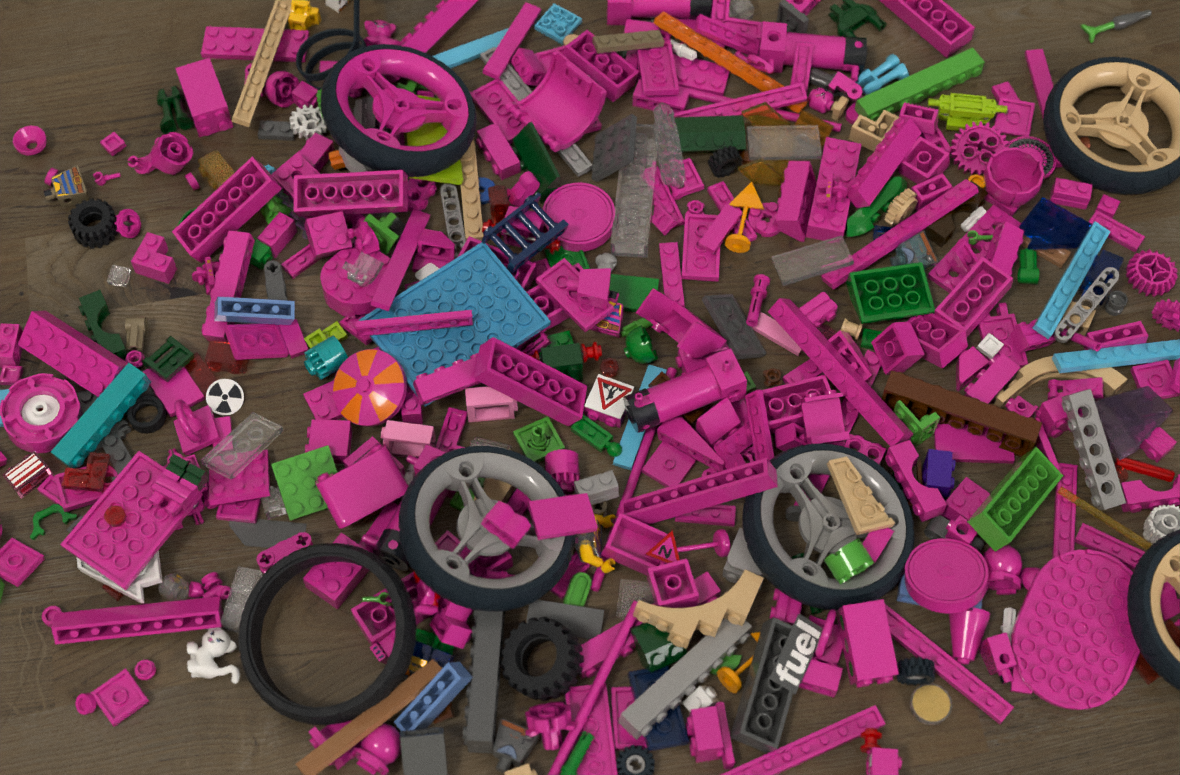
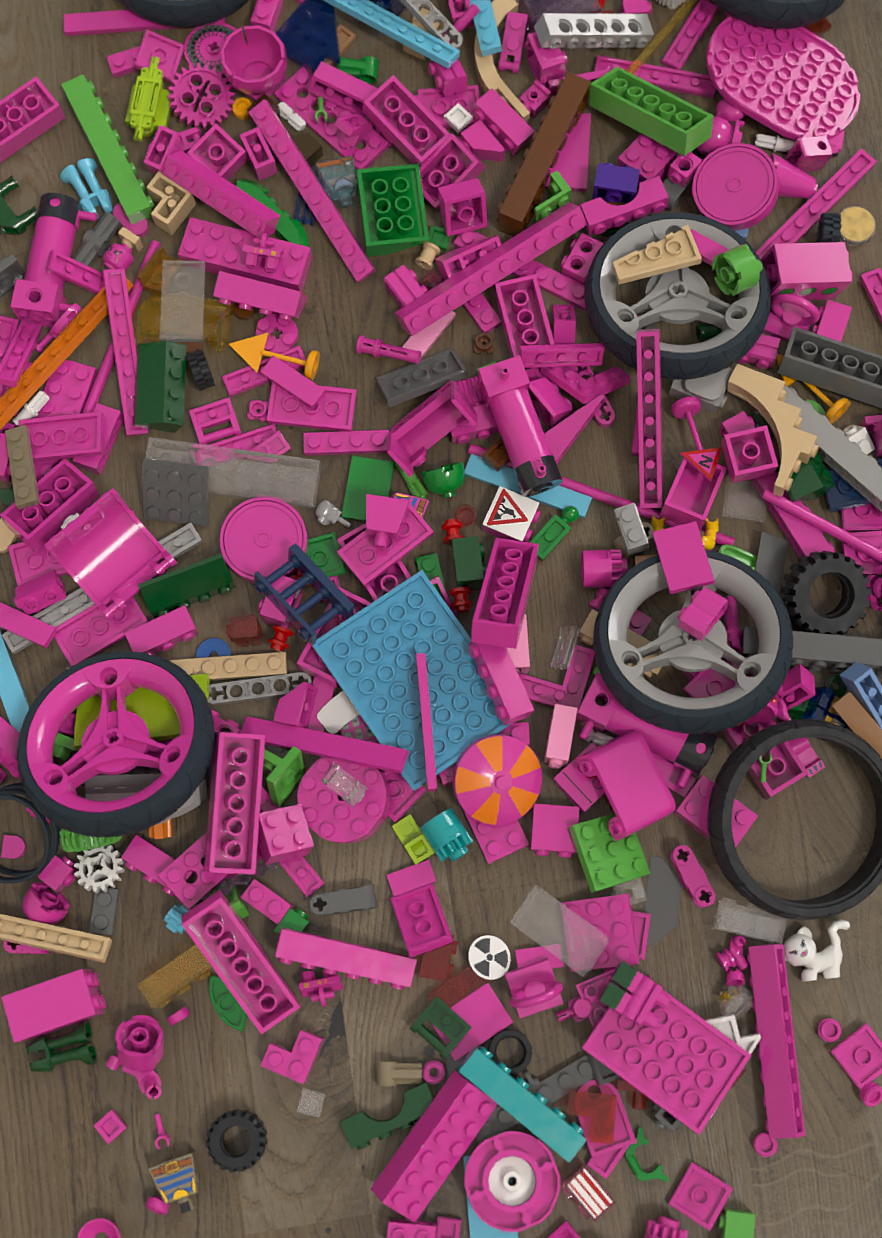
camera: 85 degrees left, 15 degrees up
(115, 516) = (667, 1070): clear red tile -> none
(132, 217) = (247, 1091): dark pink gear -> none
(254, 311) = (389, 920): medium blue brick -> none
(366, 238) = (297, 787): dark pink piece -> none
(523, 188) = (224, 602): dark pink leg -> none
(538, 441) = (559, 581): bright green plate -> none
(668, 146) = (190, 433): clear piece -> none
(668, 465) = (588, 459): dark pink plate -> none
(796, 654) = (817, 339): sticker -> none
(812, 260) = (340, 287): clear tile -> none
(823, 418) = (552, 288): dark pink panel -> none
(847, 86) = (112, 221): dark pink leg -> none
(901, 207) = (280, 184): tan gear -> none

